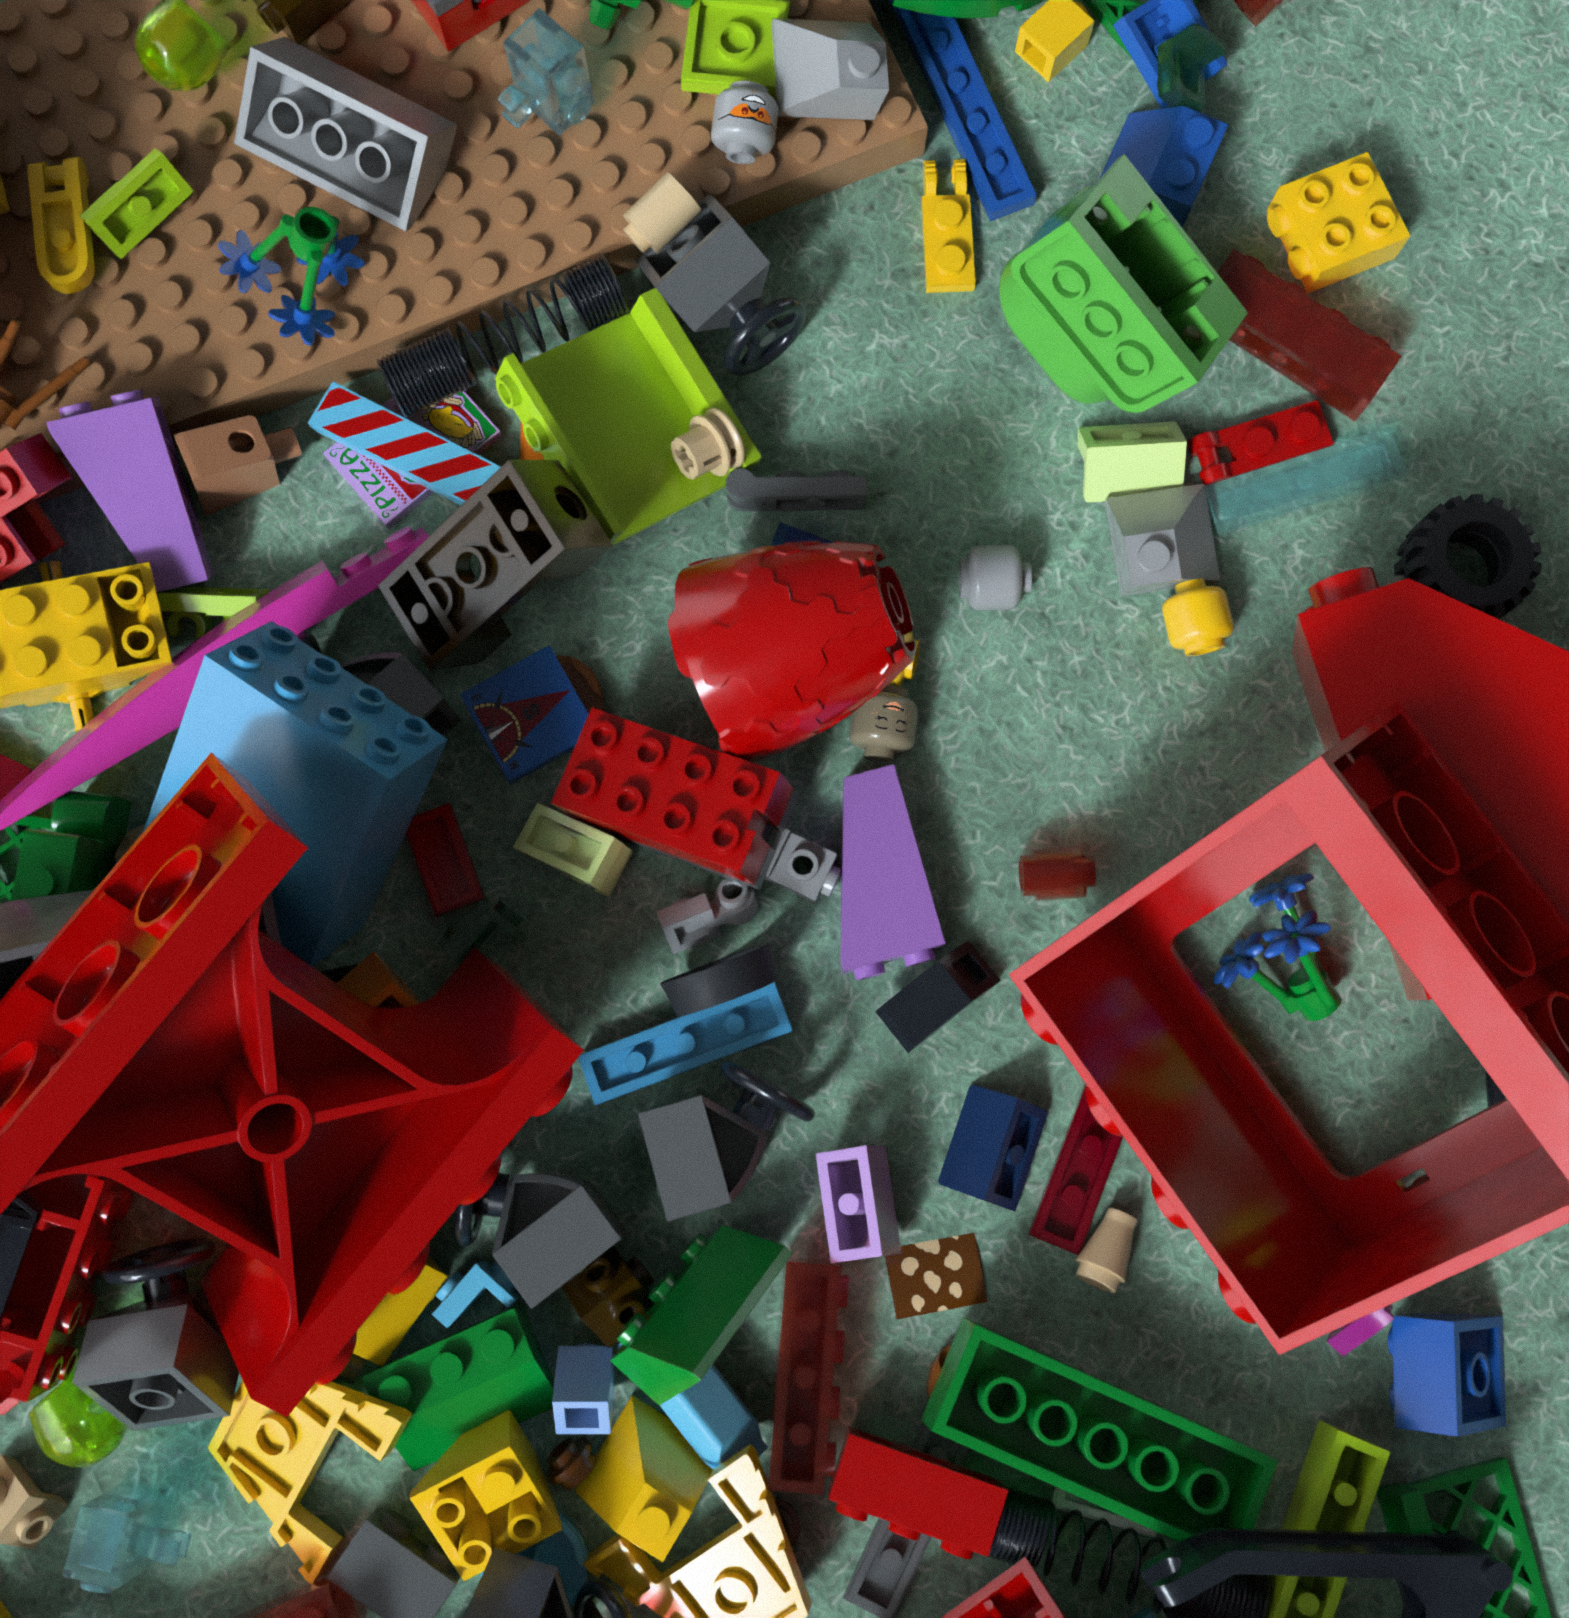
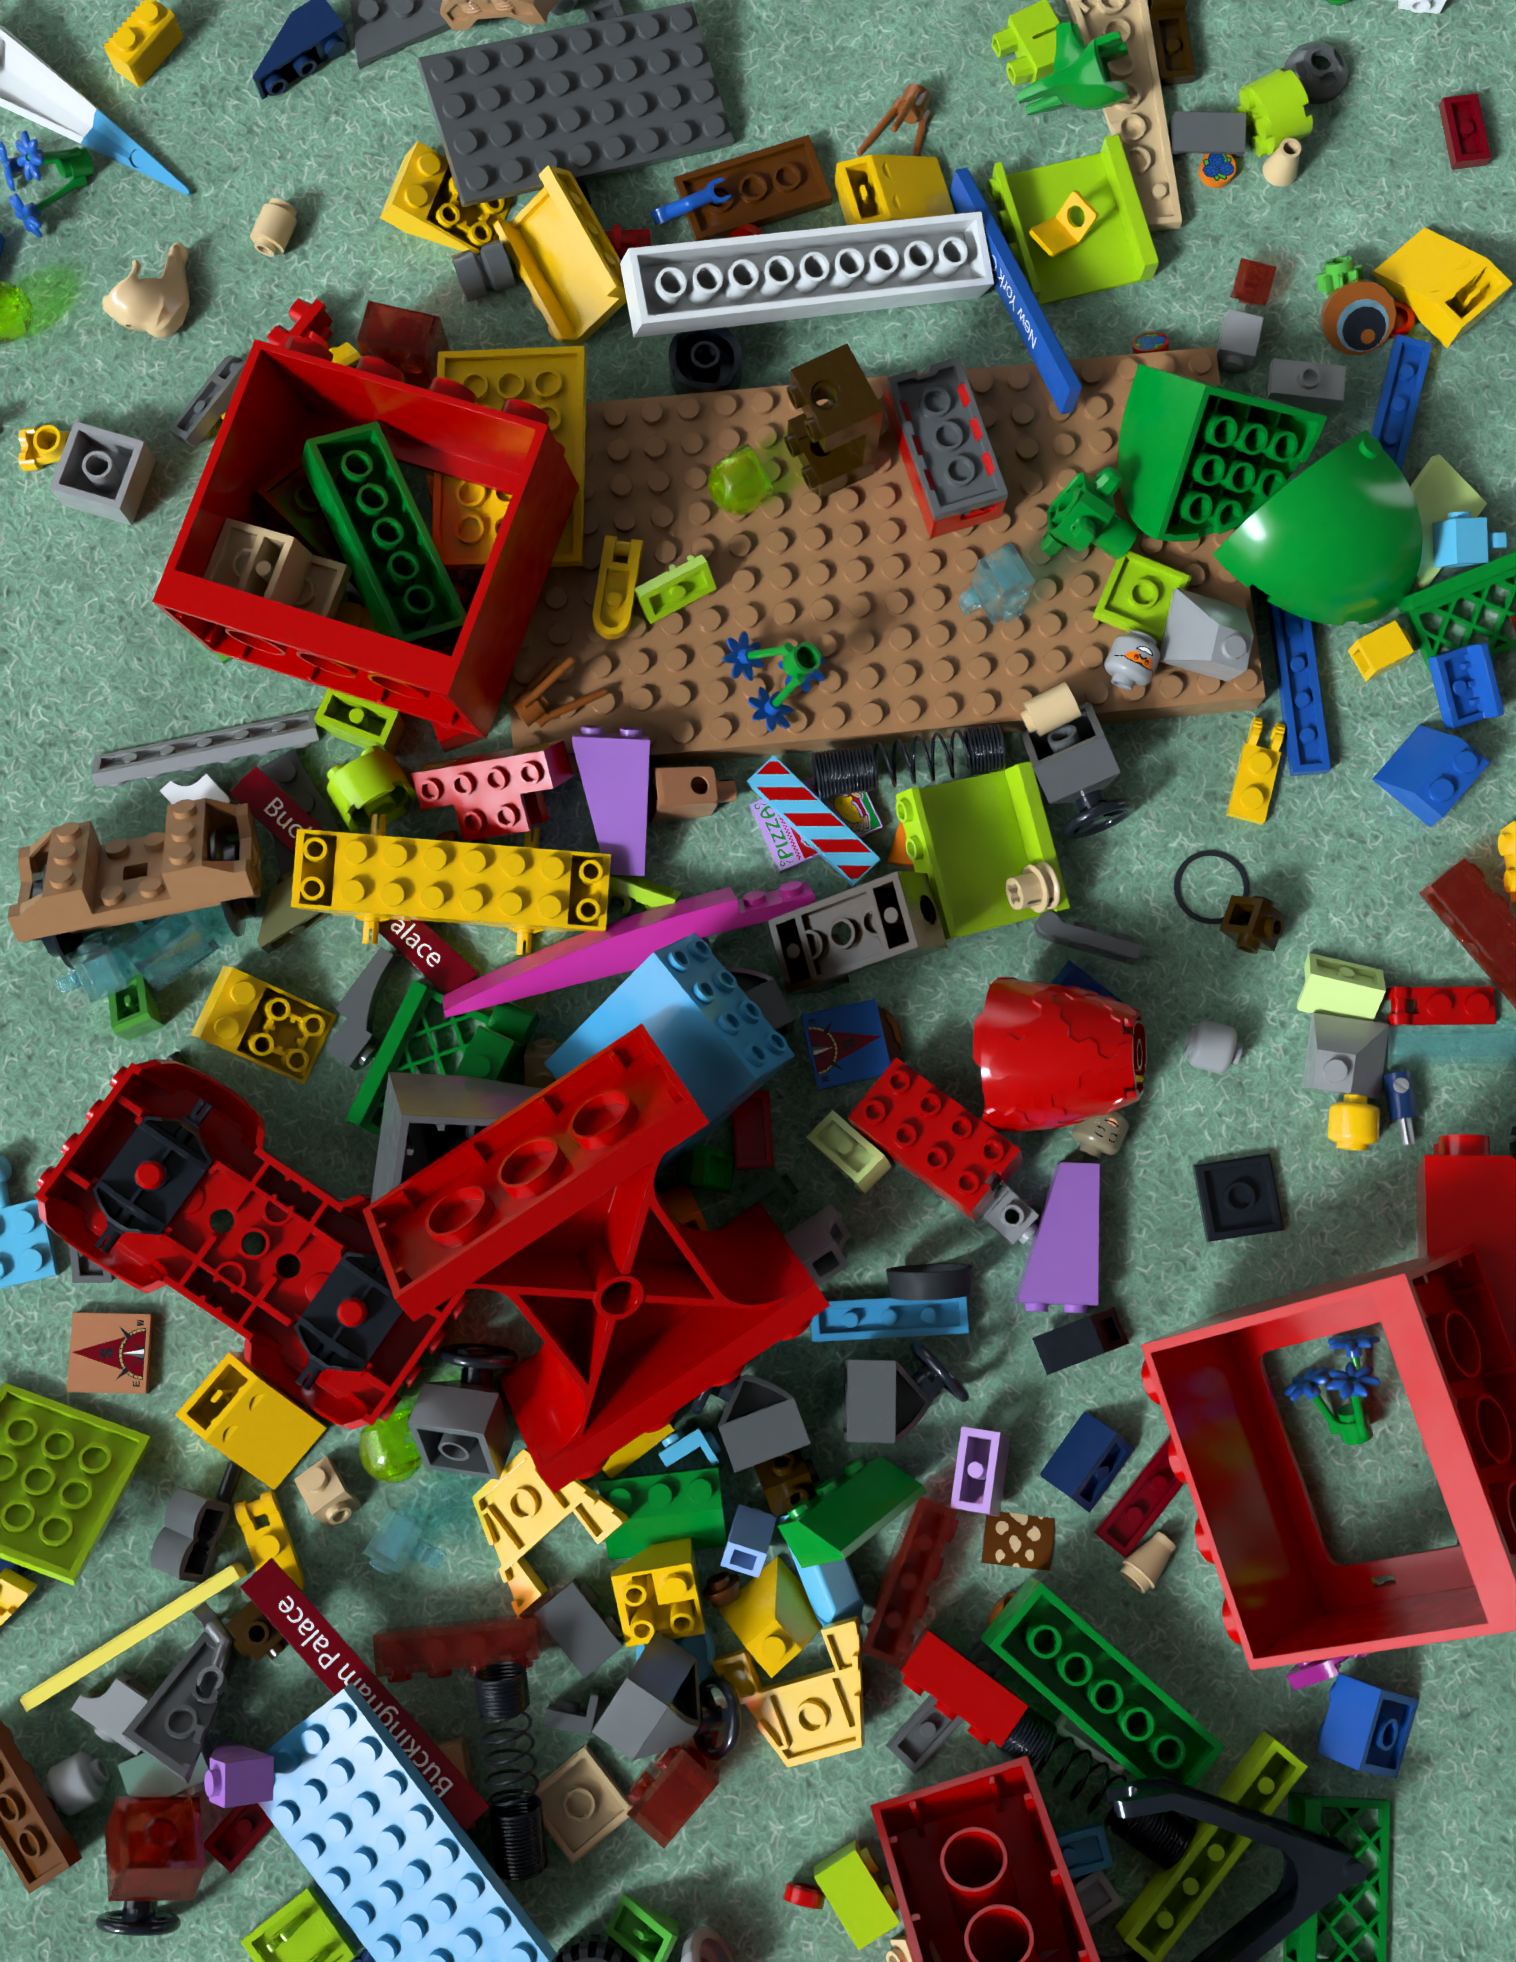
camera: 15 degrees right, 0 degrees up
(342, 131) = (838, 579): light grey slope -> none
(395, 925) = (706, 1169): none -> green tile
(568, 978) = (820, 1244): none -> light grey brick
(697, 920) = (924, 1231): light grey plate -> none
(934, 427) = (1195, 856): none -> black piece
(997, 409) = (1253, 923): none -> dark brown brick
(1056, 873) = (1193, 1278): clear red brick -> none
(1082, 755) = (1238, 1197): none -> black tile
(1118, 297) = (1367, 872): bright green brick -> none
(1182, 66) = (1469, 708): clear green bracket -> none
(1249, 575) = (1402, 1103): none -> dark blue piece

